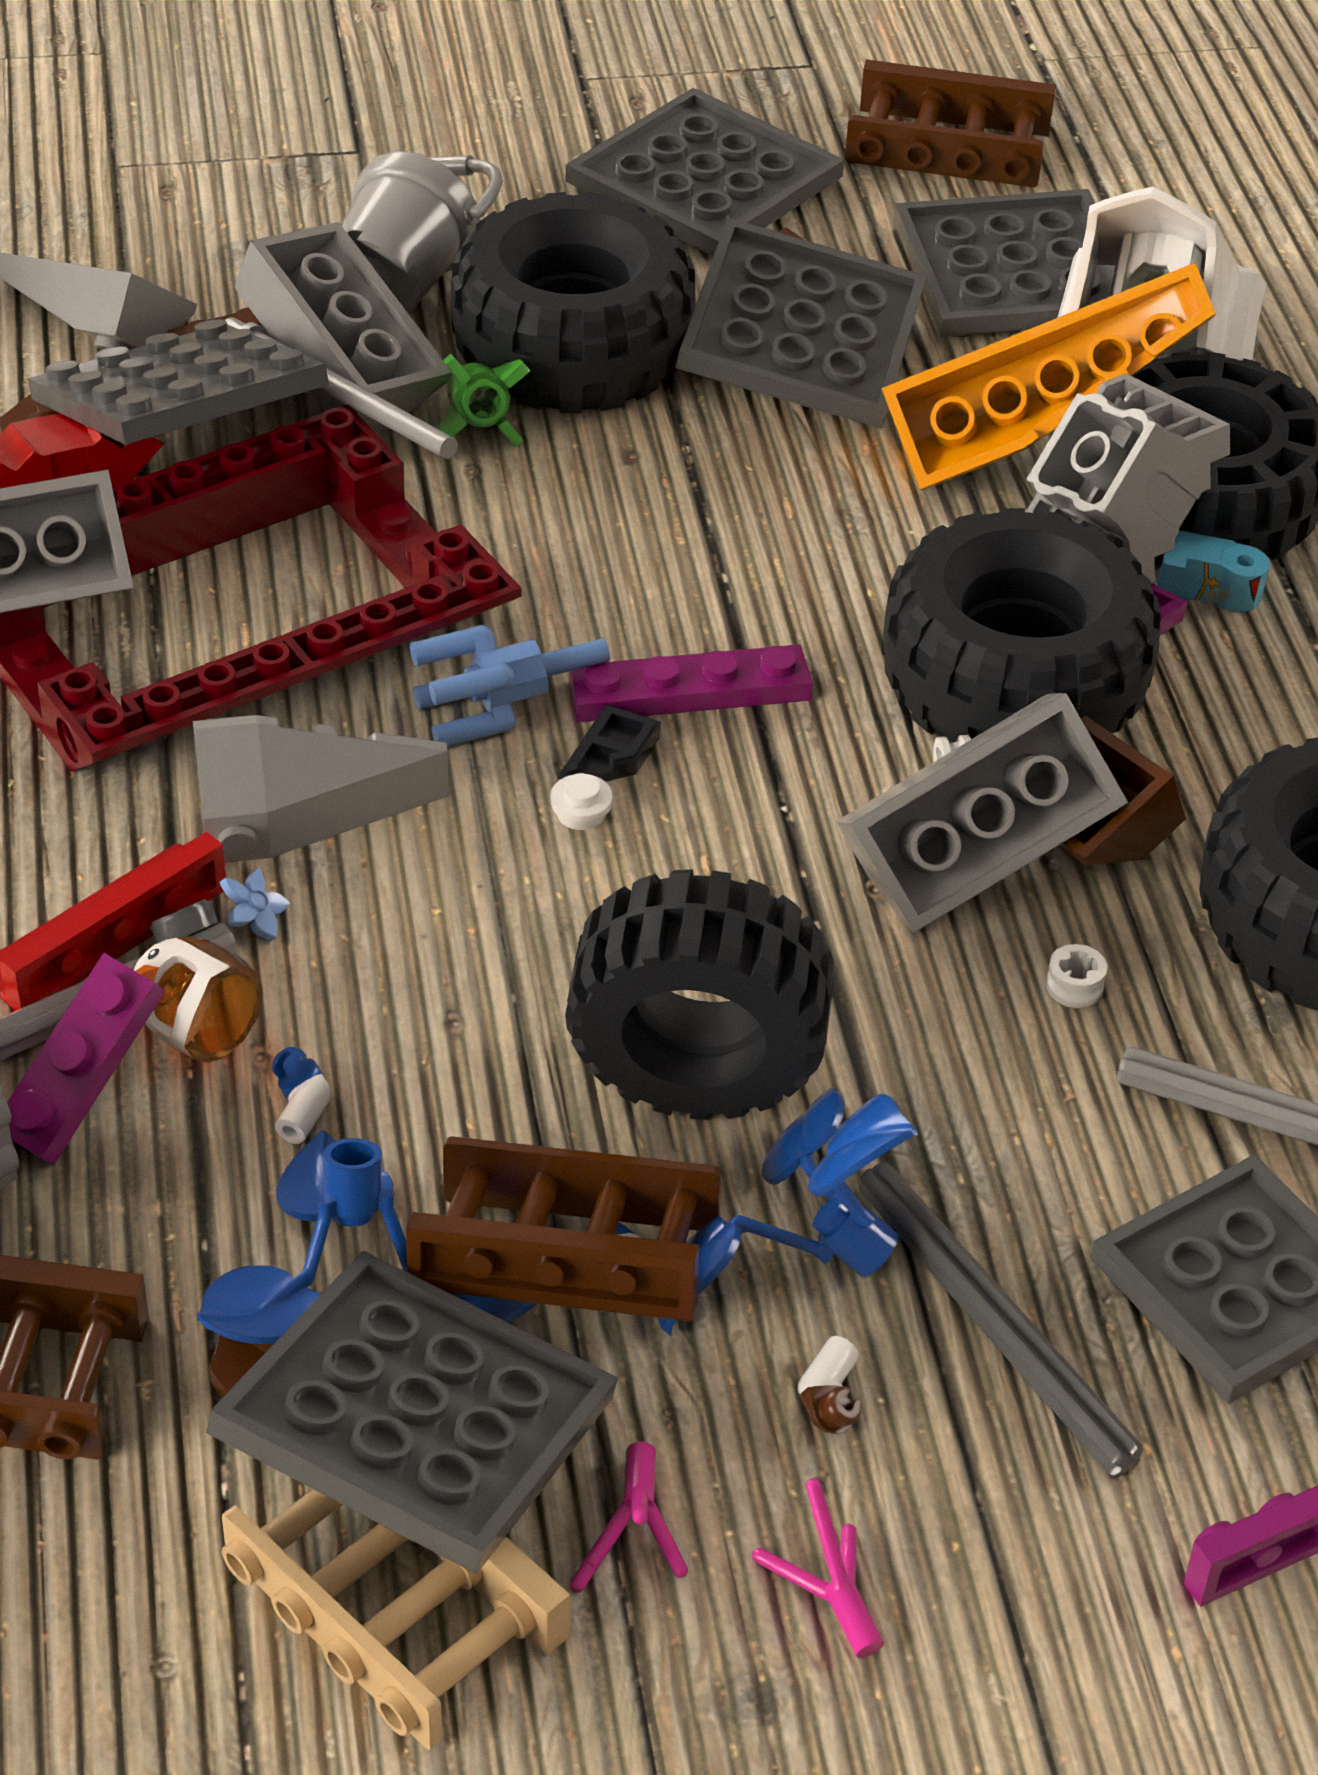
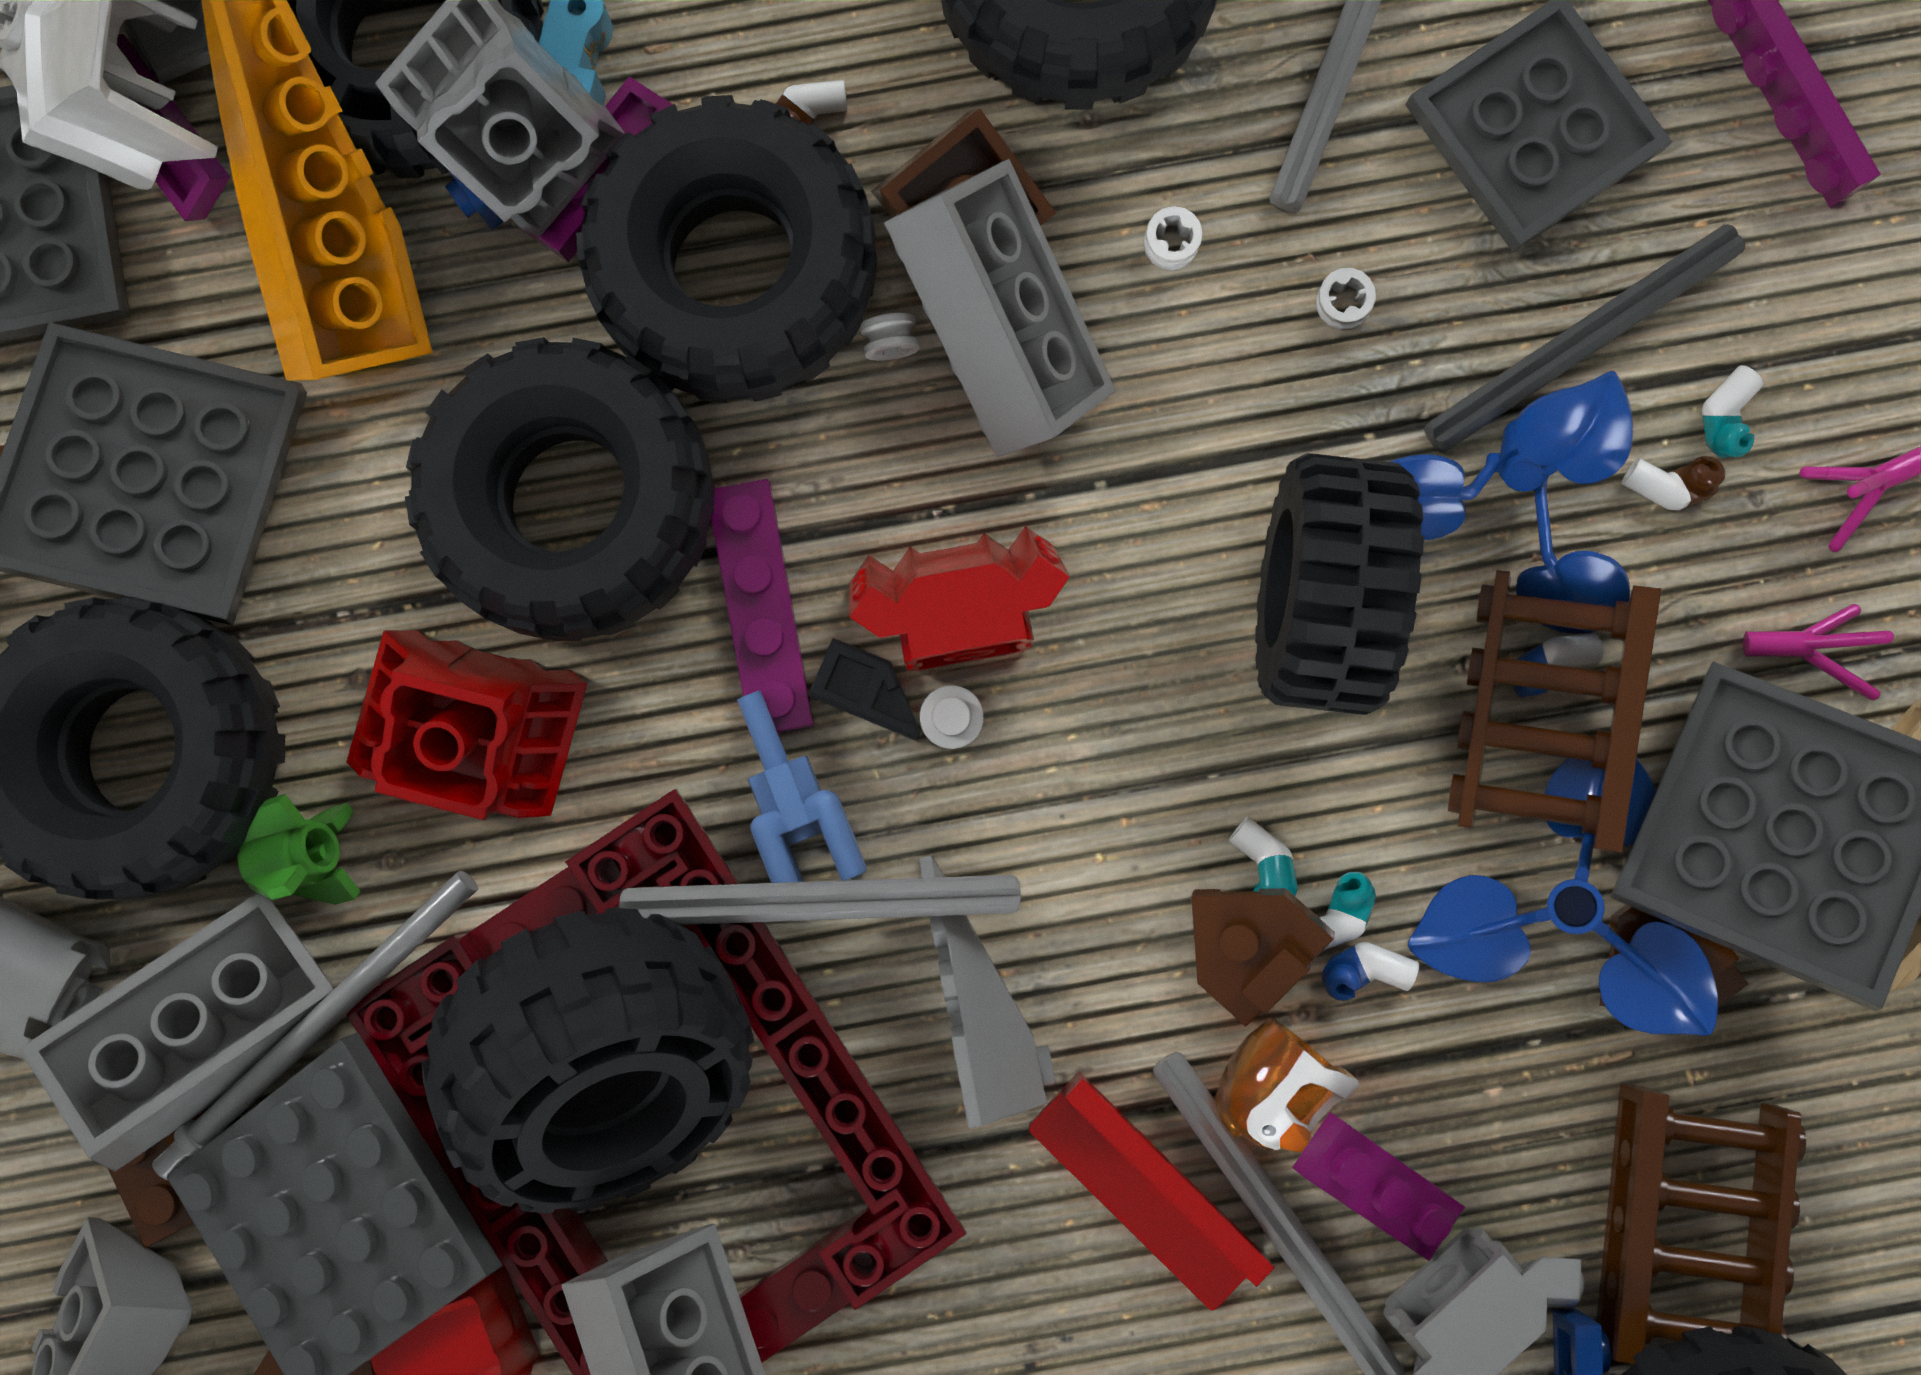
camera: 85 degrees left, 40 degrees up
(184, 921) = (1163, 1107): dark grey tile -> none
(254, 905) = (1125, 1041): light blue plant -> none
(288, 489) = (586, 1060): none -> black tyre
(335, 992) = (1253, 946): none -> reddish brown plate
(372, 1086) = (1350, 907): none -> teal arm
(411, 660) = (827, 899): none -> light grey axle
(418, 1024) = (1272, 856): none -> arm
(584, 492) = (465, 727): none -> red slope
(690, 781) = (959, 599): none -> red slope
(788, 530) = (487, 437): none -> black tyre
(915, 1440) = (1722, 415): none -> arm
(1024, 1128) = (1338, 282): none -> white bush
(1177, 717) = (812, 99): none -> white arm

